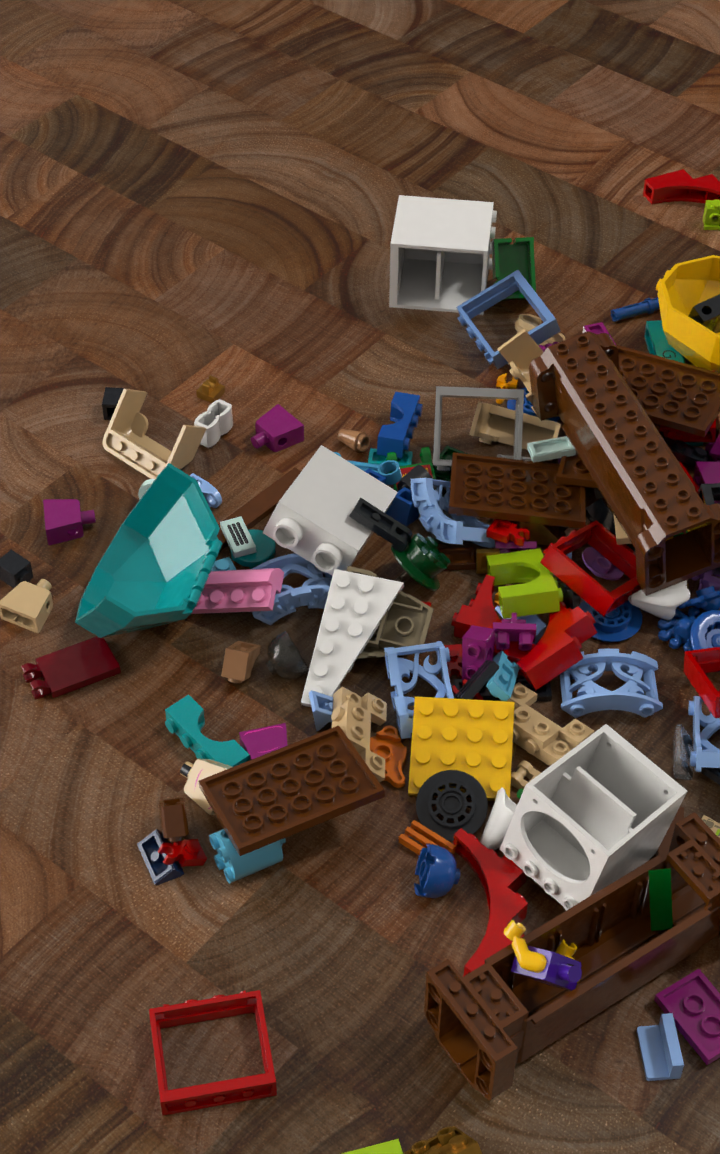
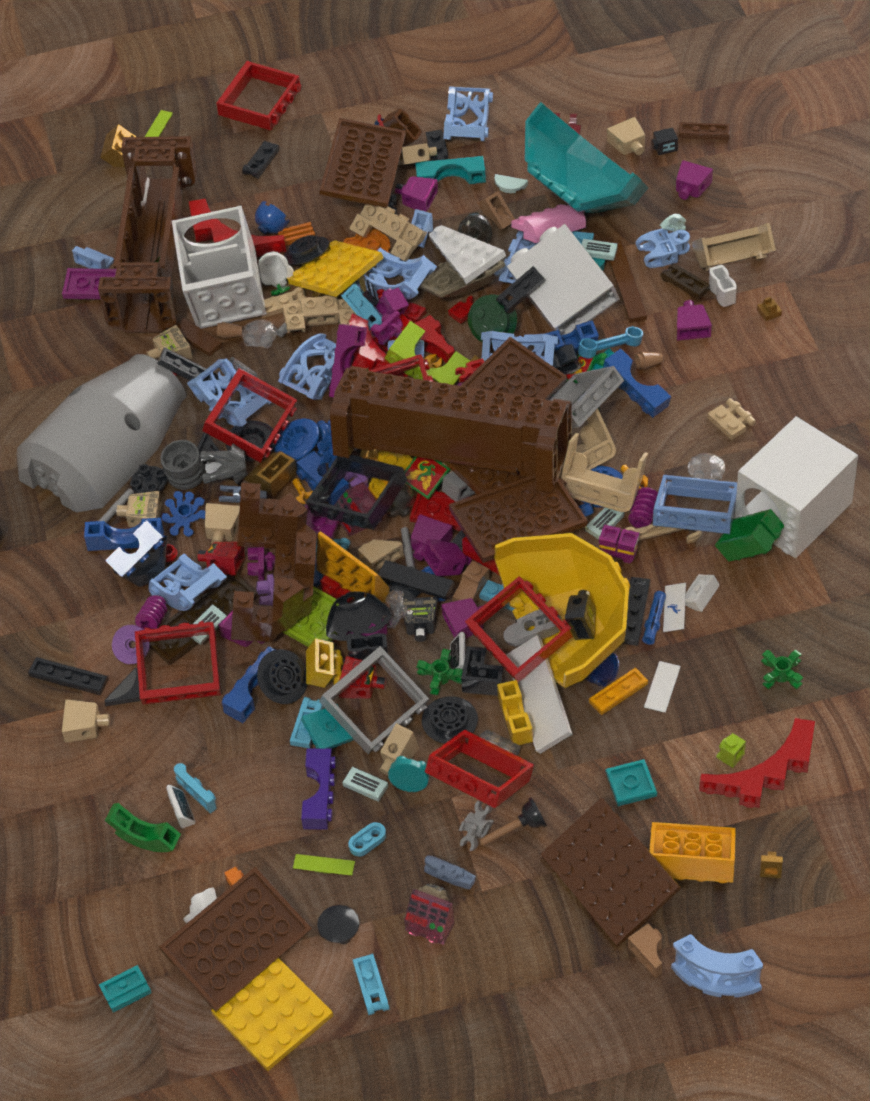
camera: 130 degrees right, 5 degrees up
(65, 770) = (457, 100): none -> light blue fence
(110, 401) = (792, 248): black brick -> none
(163, 787) = (436, 138): none -> black hinge
(181, 678) = (510, 184): none -> light aqua tile
(222, 461) = (685, 281): none -> dark brown plate
(330, 970) = (261, 159): none -> black plate
(379, 361) = (727, 422): none -> tan plate
(447, 349) = (706, 466): none -> clear dish
(548, 967) = (153, 192): torso -> none
(583, 298) = (701, 592): none -> white slope
(583, 625) = (348, 341): none -> magenta arch
(602, 309) = (674, 607): none -> white sticker
(611, 221) = (782, 663): none -> green pin
(631, 329) = (636, 608): none -> black tile

